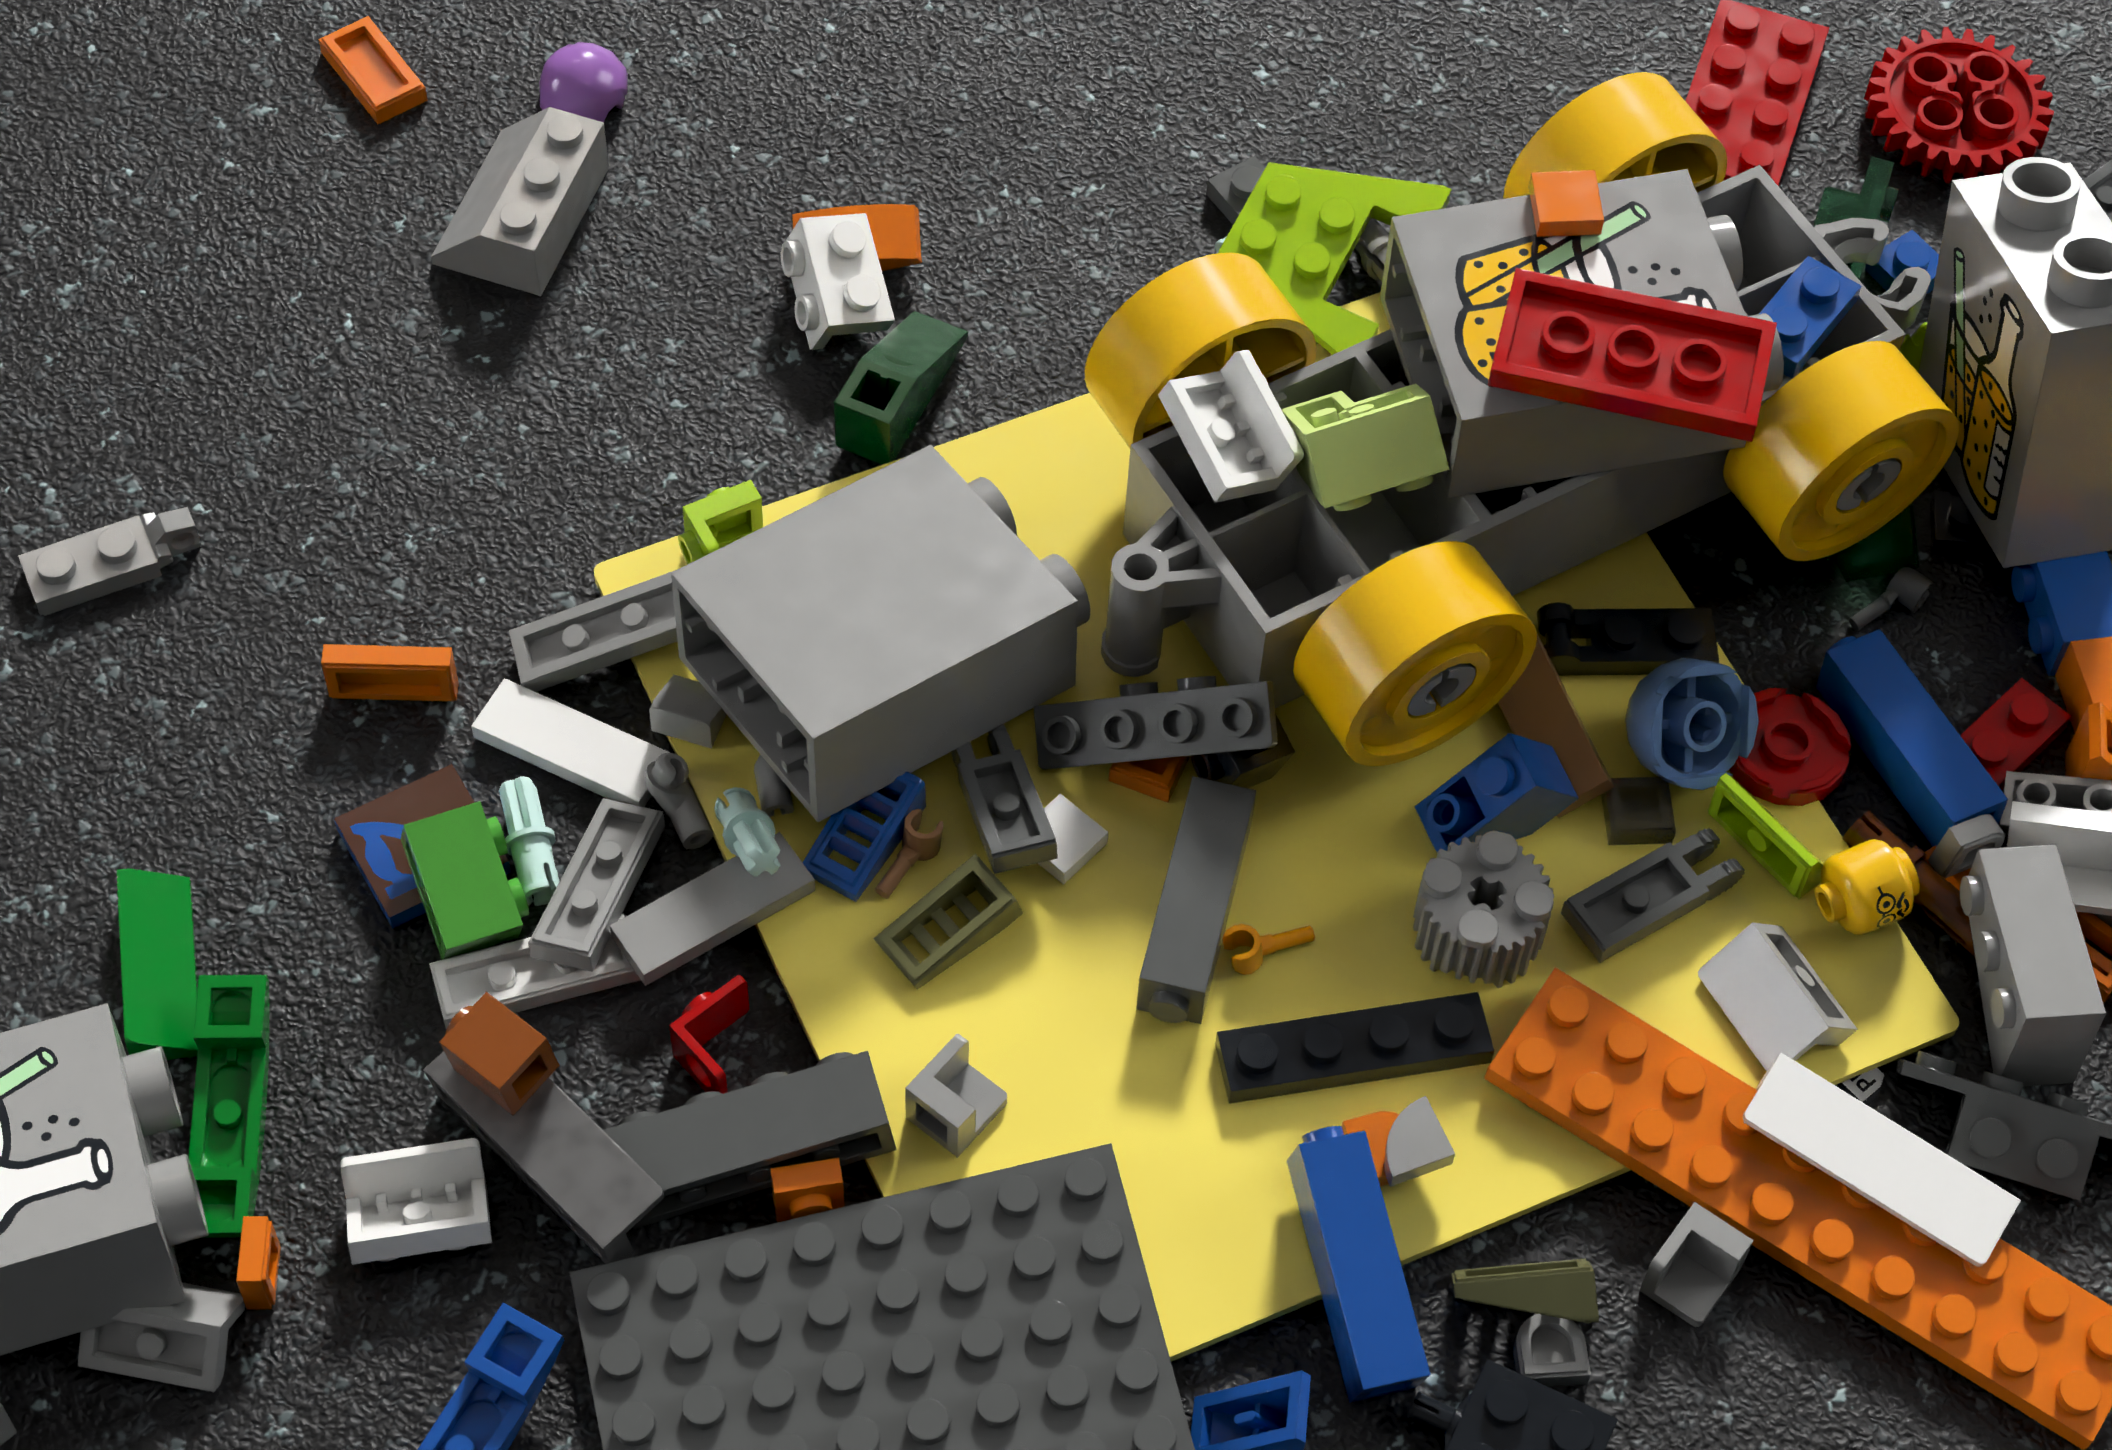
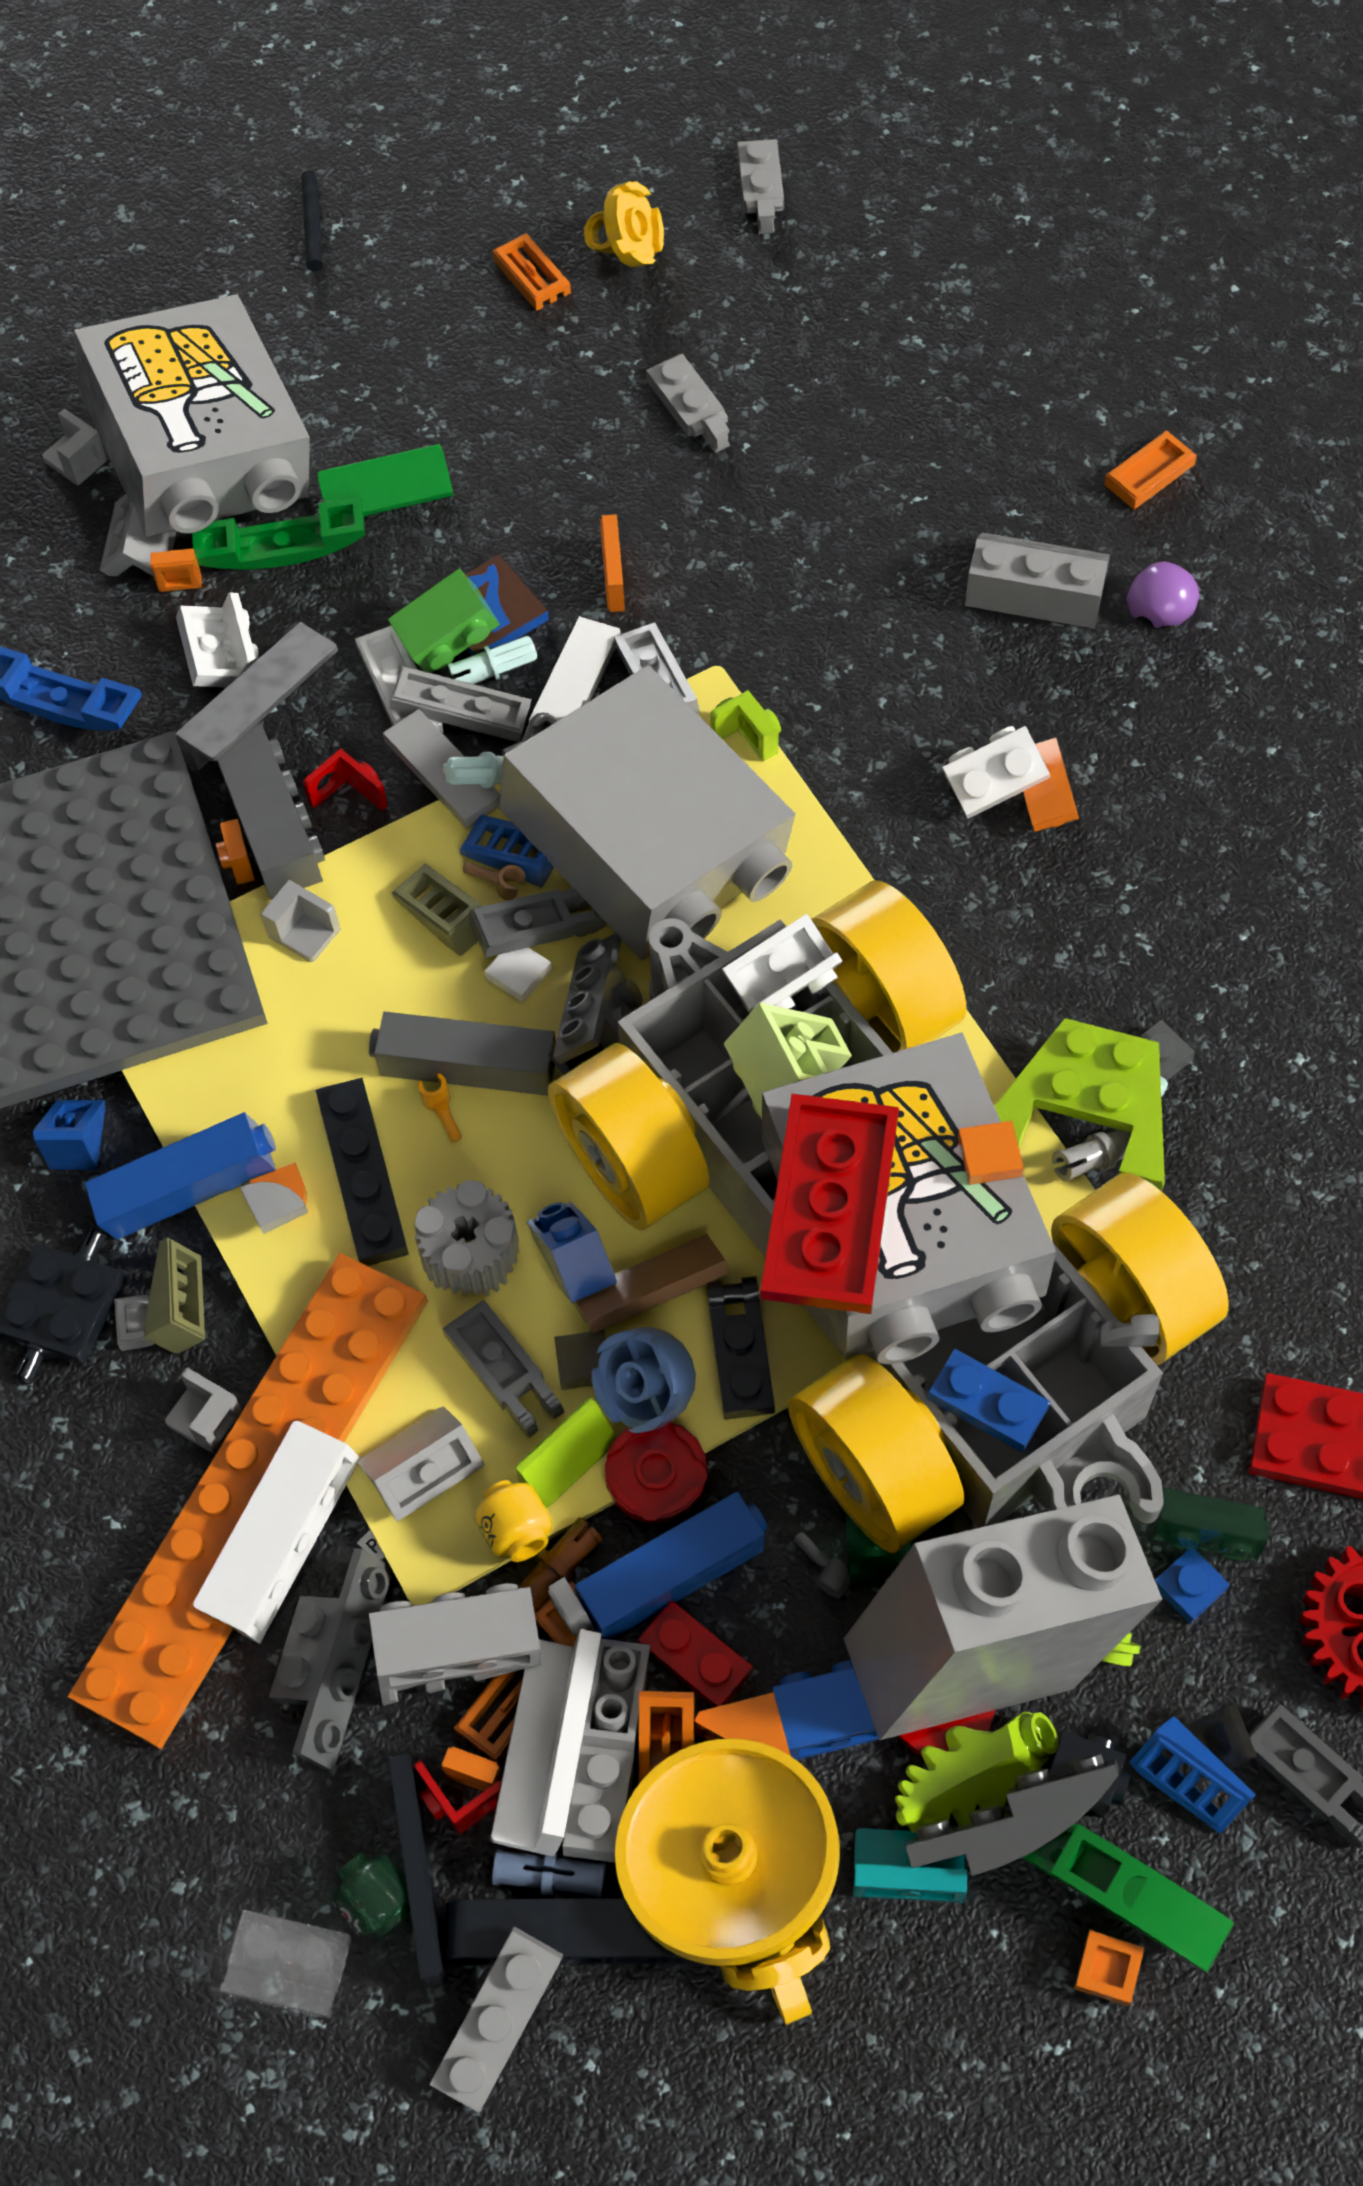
camera: 90 degrees right, 5 degrees up
(498, 1052) = (295, 647): dark orange brick -> none
(894, 386) = (909, 823): dark green slope -> none
(1727, 168) = (1140, 1332): none -> light grey tile

